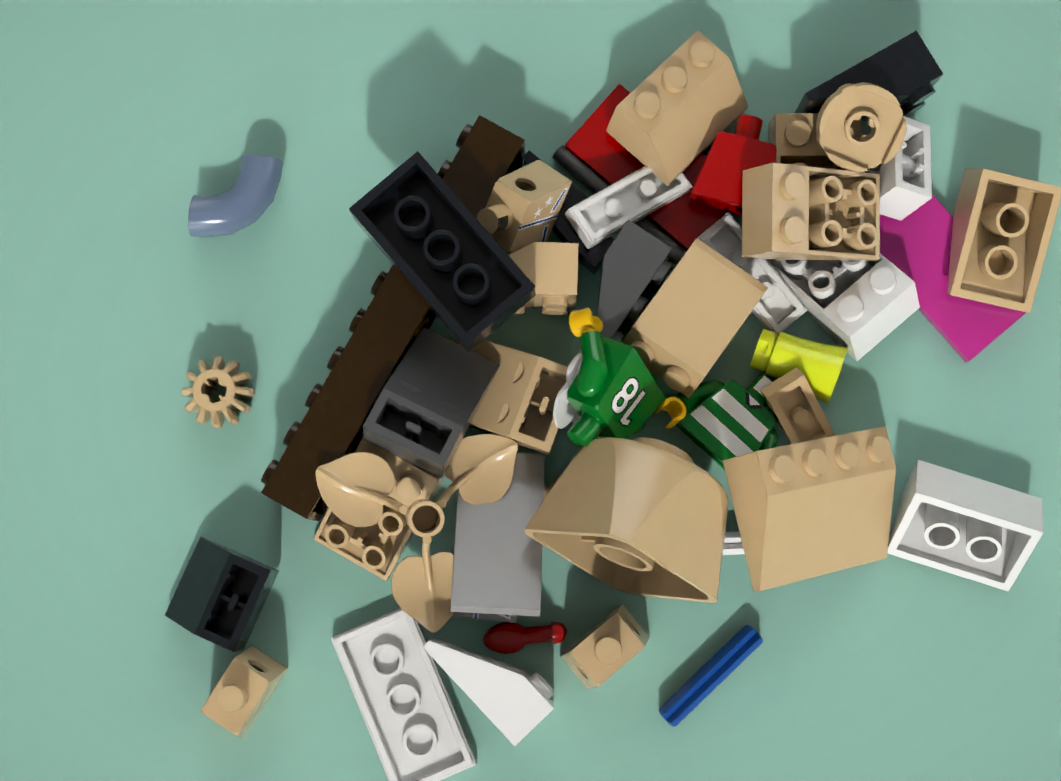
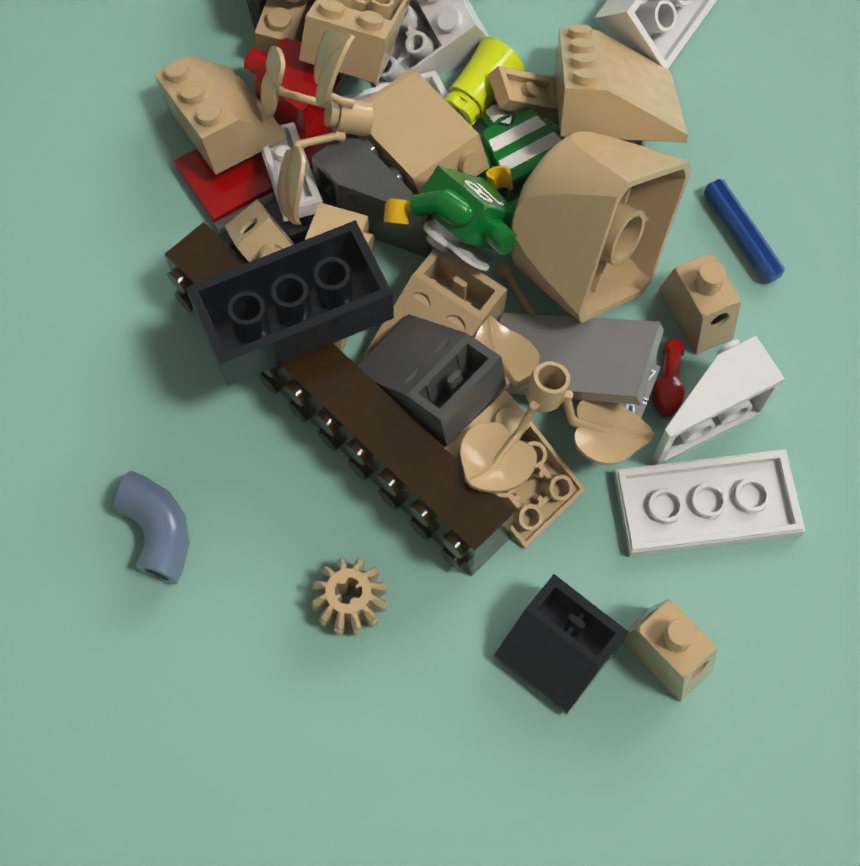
camera: 80 degrees left, 15 degrees down
(675, 218) = (340, 113): none -> tan plant

